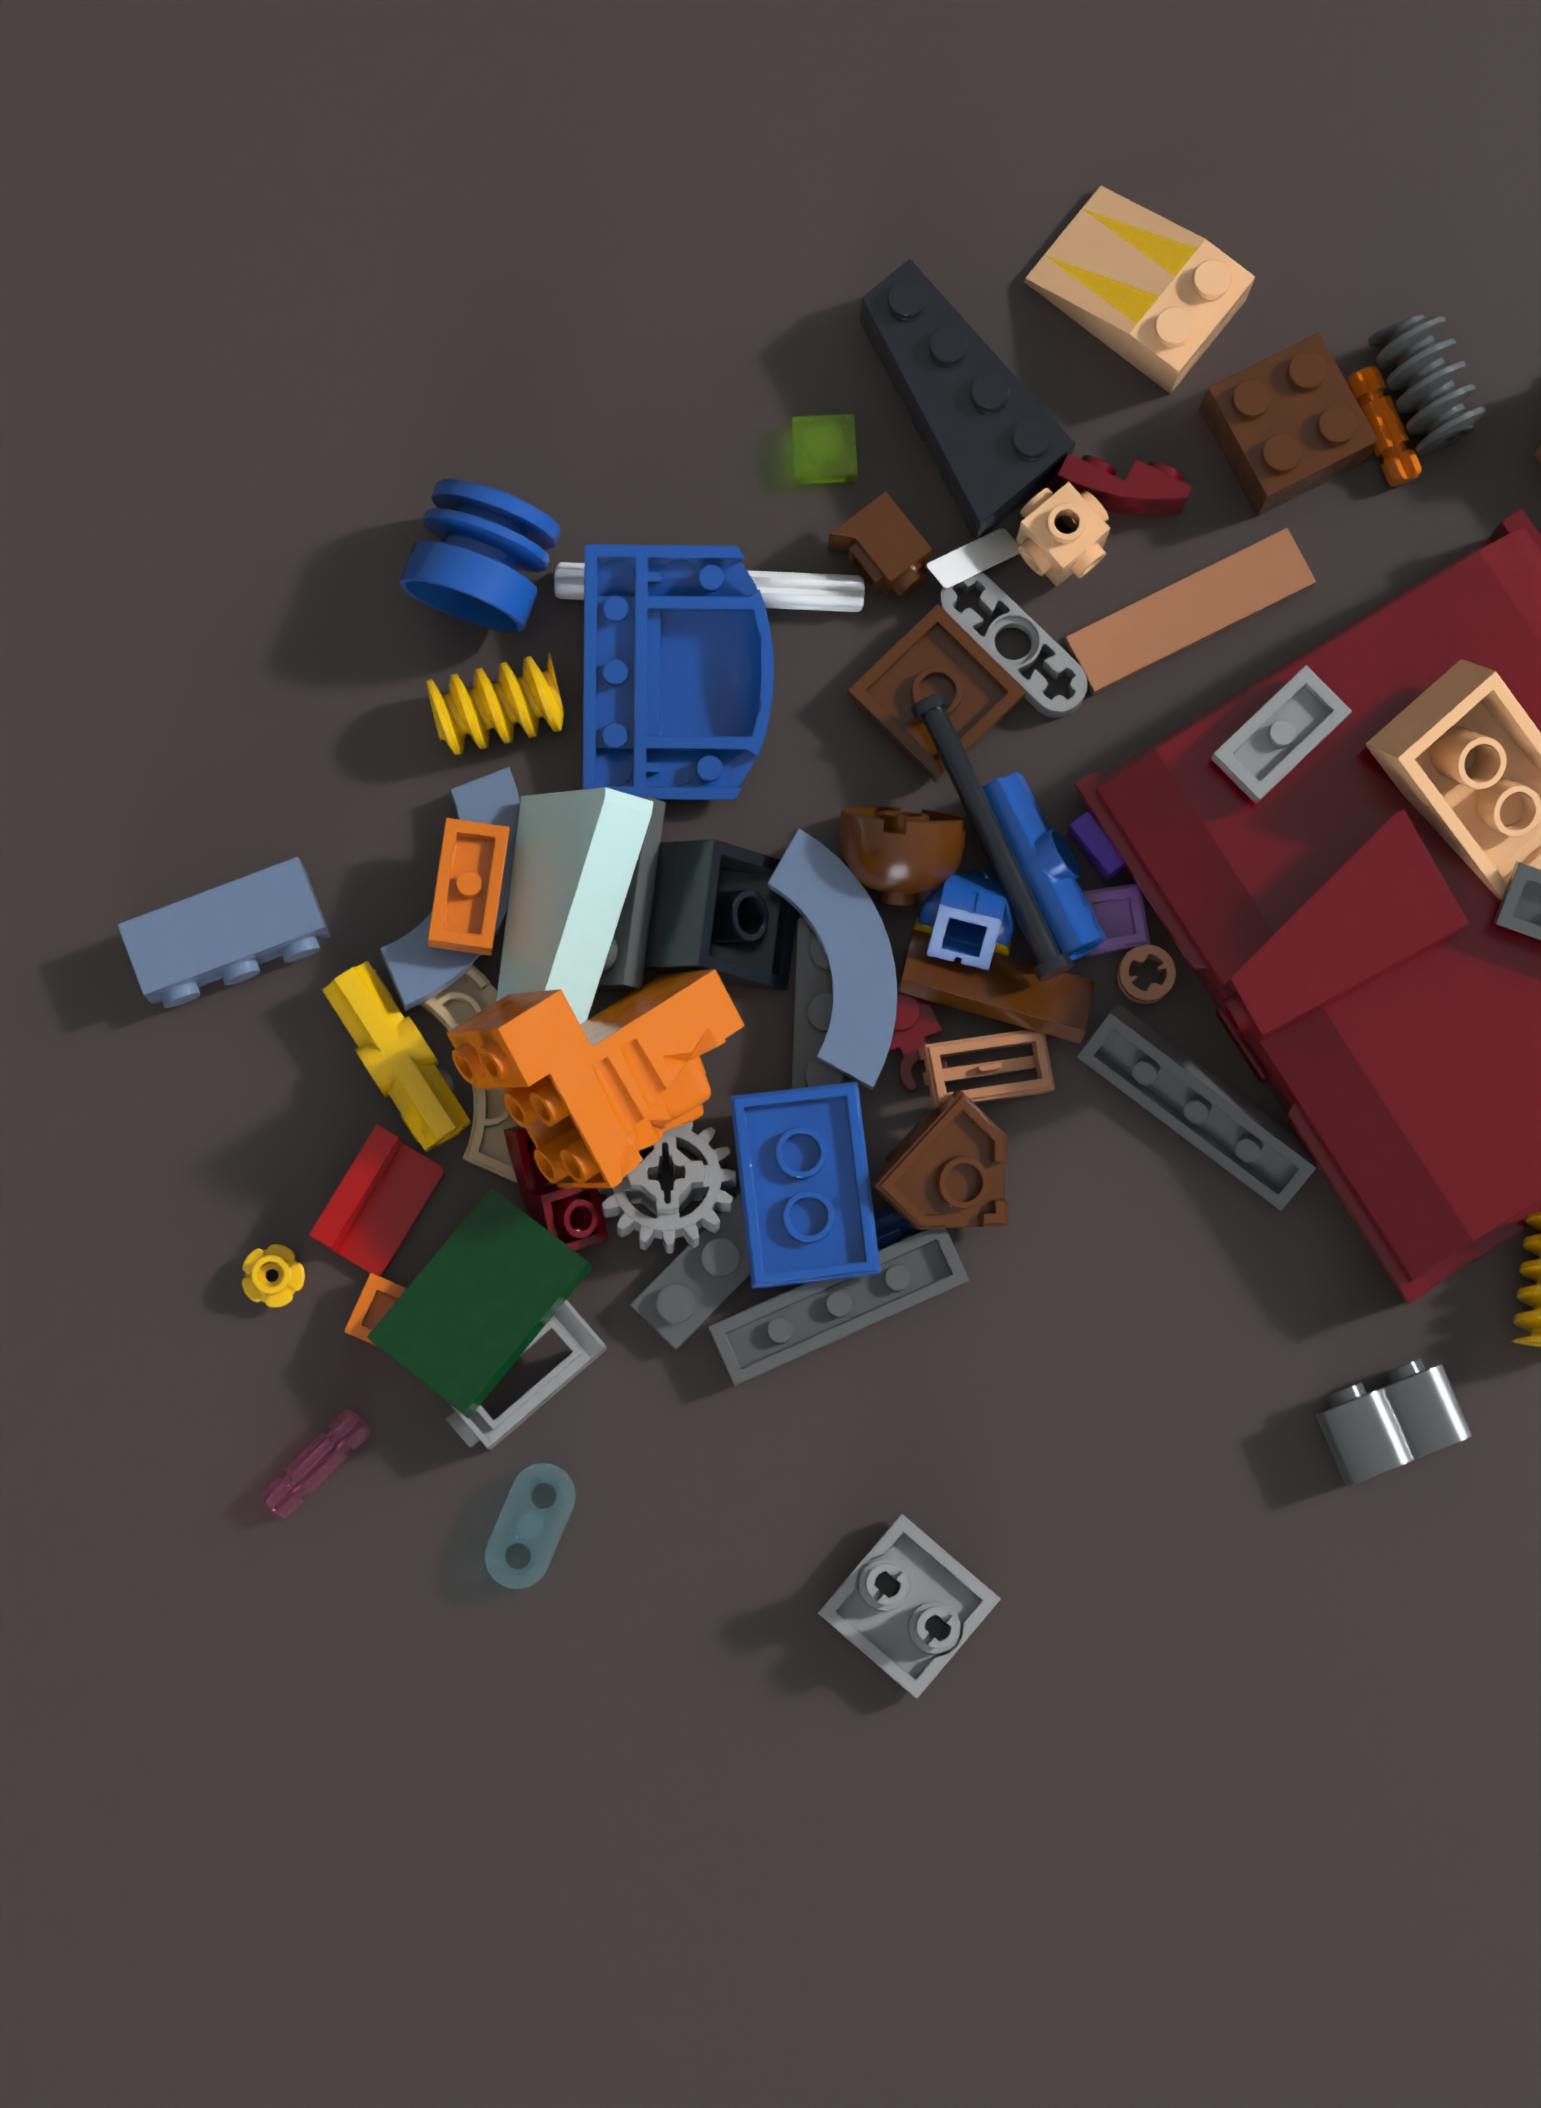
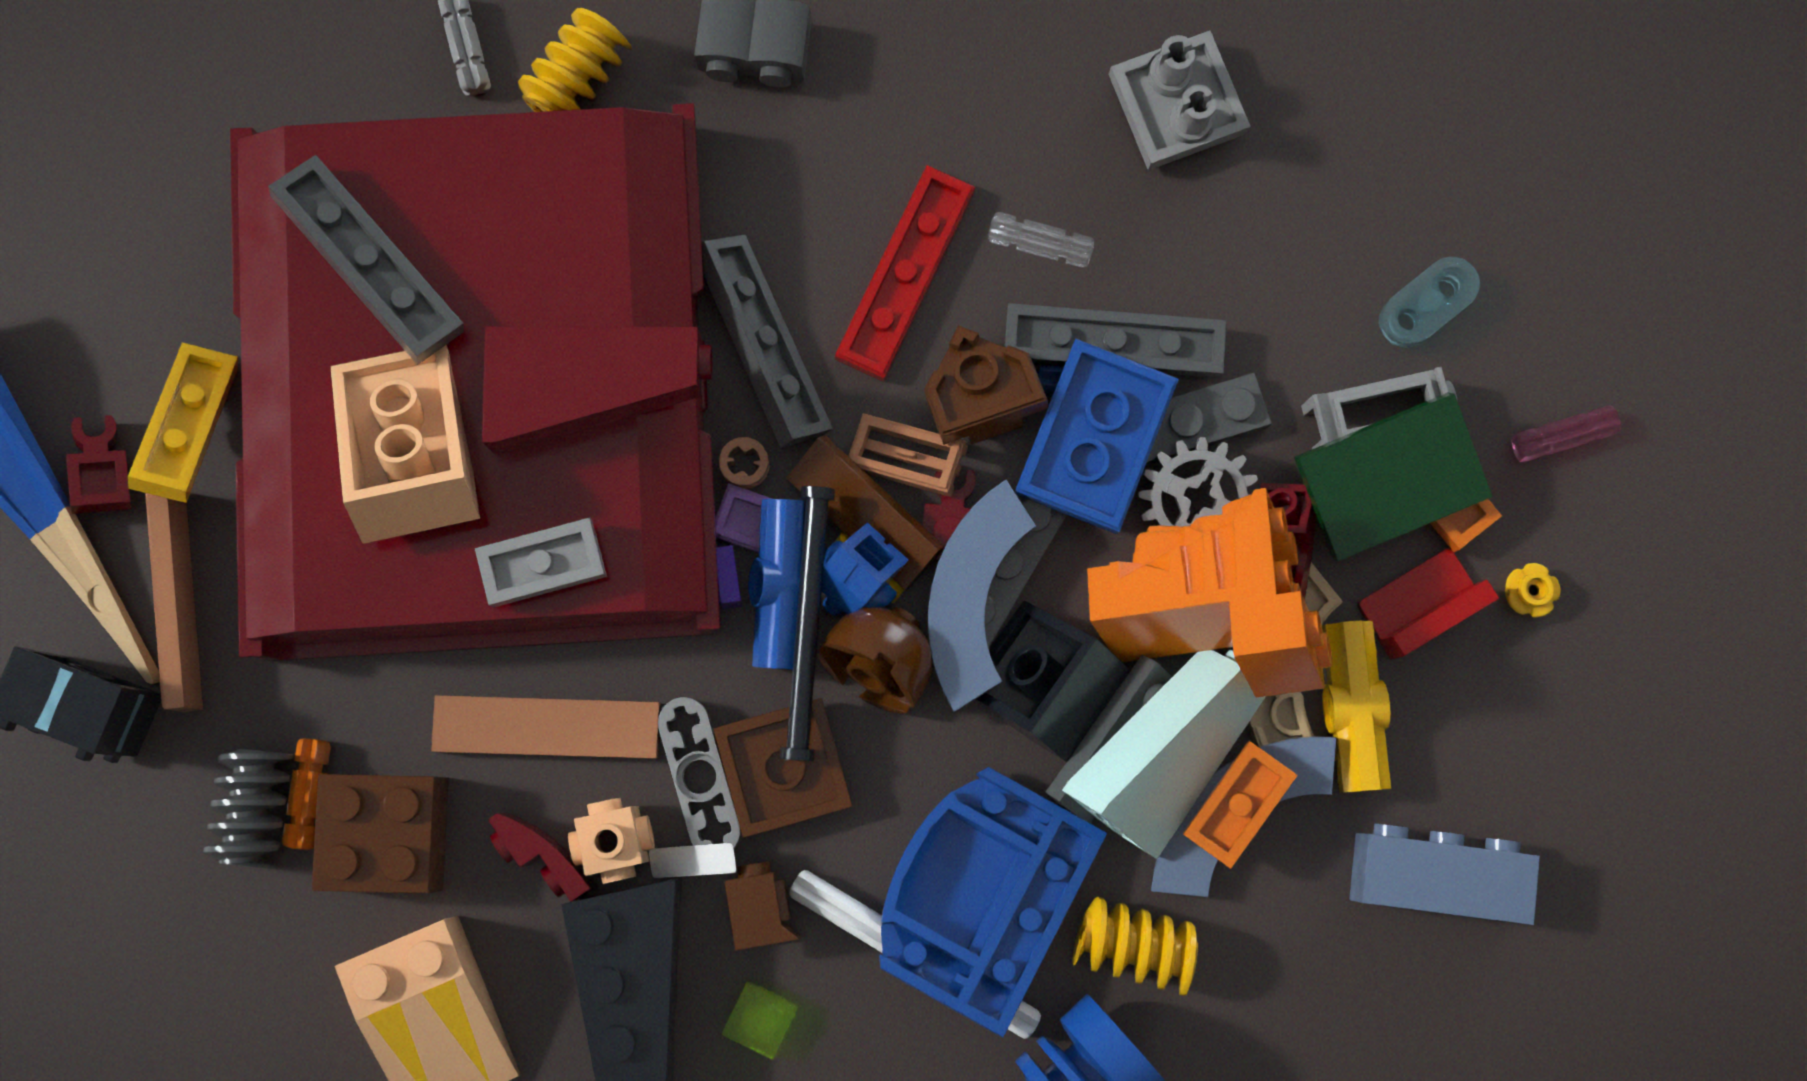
camera: 150 degrees left, 0 degrees up
(972, 1374) = (1041, 239): none -> clear axle
(1093, 1263) = (905, 273): none -> red tile

